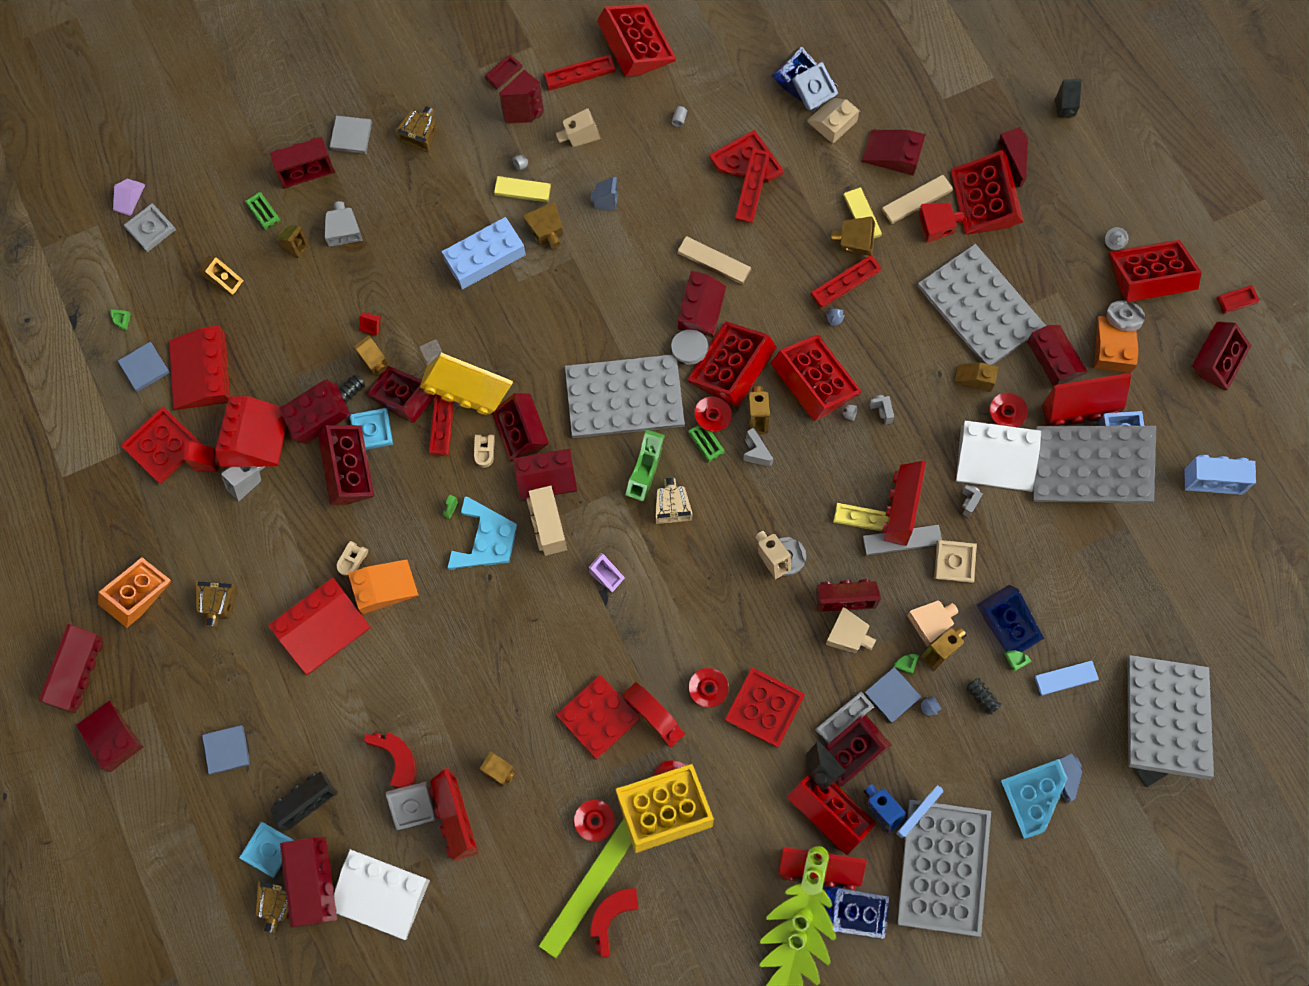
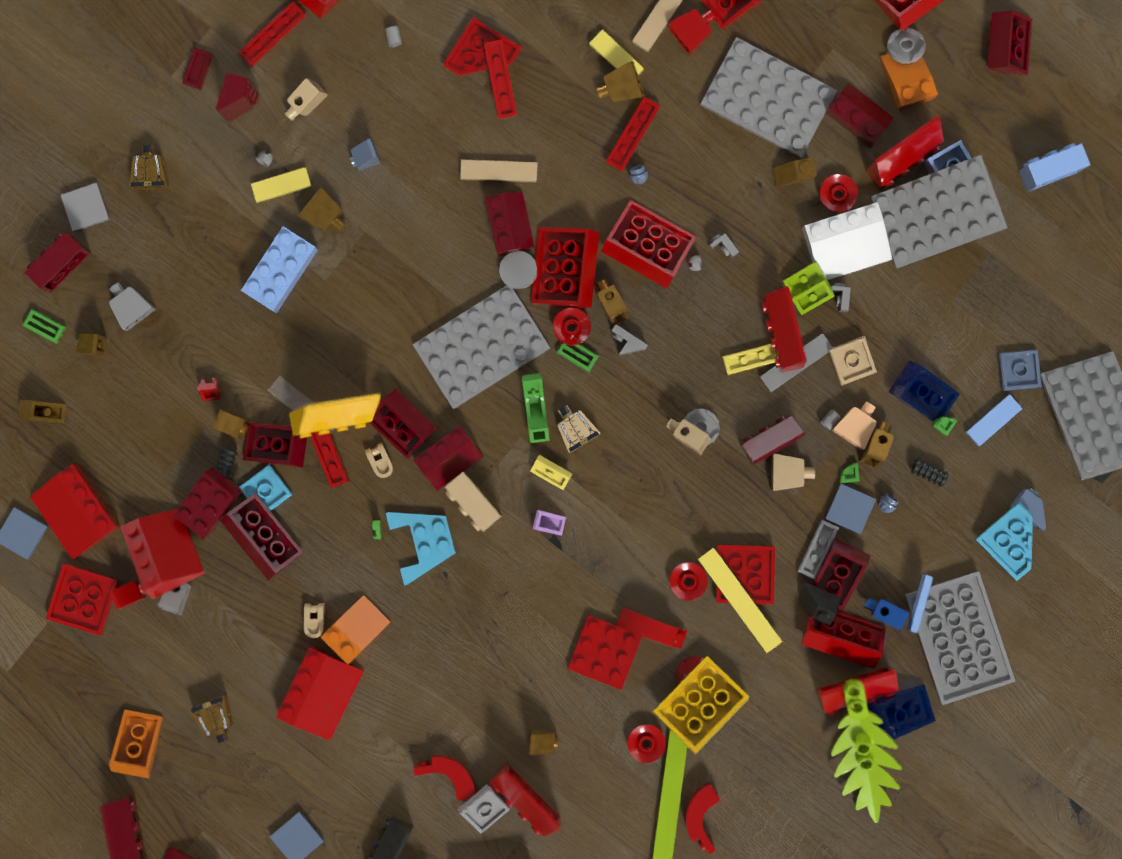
camera: 25 degrees left, 15 degrees up
(631, 530) = (551, 472): none -> light yellow plate
(748, 727) = (740, 600): none -> light yellow tile
(910, 604) = (830, 419): none -> light grey hinge
(944, 478) = (809, 288): none -> lime slope
(1111, 644) = (1020, 370): none -> sand blue tile

